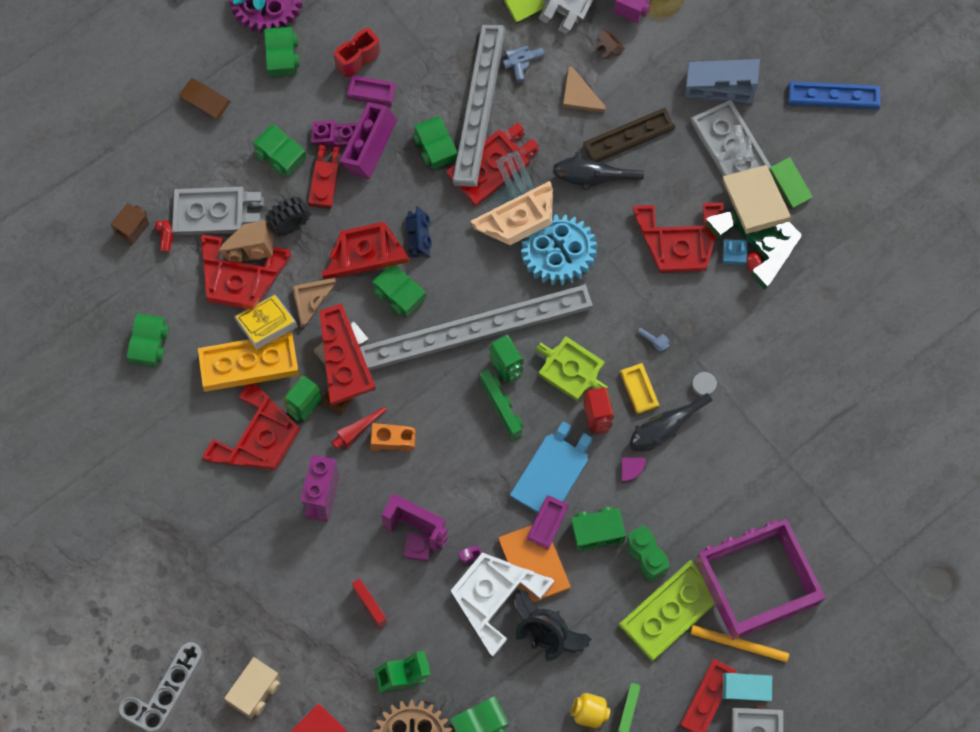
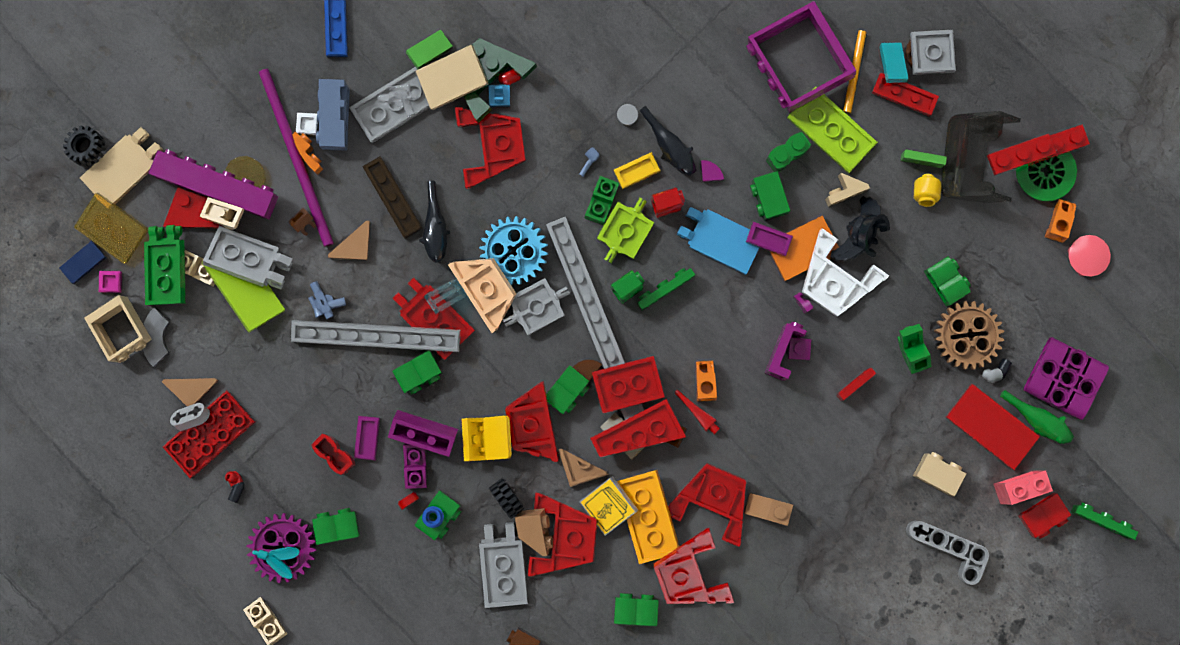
camera: 95 degrees left, 15 degrees up
(166, 234) = (534, 608): red arm -> none
(173, 391) = (682, 578): none -> wing
(204, 98) = (391, 592): reddish brown slope -> none
(238, 493) = (768, 509): none -> medium nougat slope
(276, 133) = (426, 517): none -> blue plate
(299, 123) = (408, 500): none -> red tile
(302, 399) = (683, 463): green brick -> none
(320, 487) = (764, 436): magenta panel -> none
(324, 179) = (461, 470): red hinge -> none
(355, 200) = (486, 438): none -> yellow bracket
(396, 350) = (628, 384): none -> red plate
(418, 223) = (498, 379): dark blue hinge -> none
(420, 316) = (586, 368): none -> reddish brown tile
(494, 268) = (536, 306): none -> light grey plate
(598, 621) = (851, 186): none -> tan slope
(609, 349) = (601, 200): none -> green slope
(678, 45) = (296, 157): none -> magenta piece
(685, 51) = (303, 145): none -> orange slope
(715, 54) = (307, 124): none -> white tile

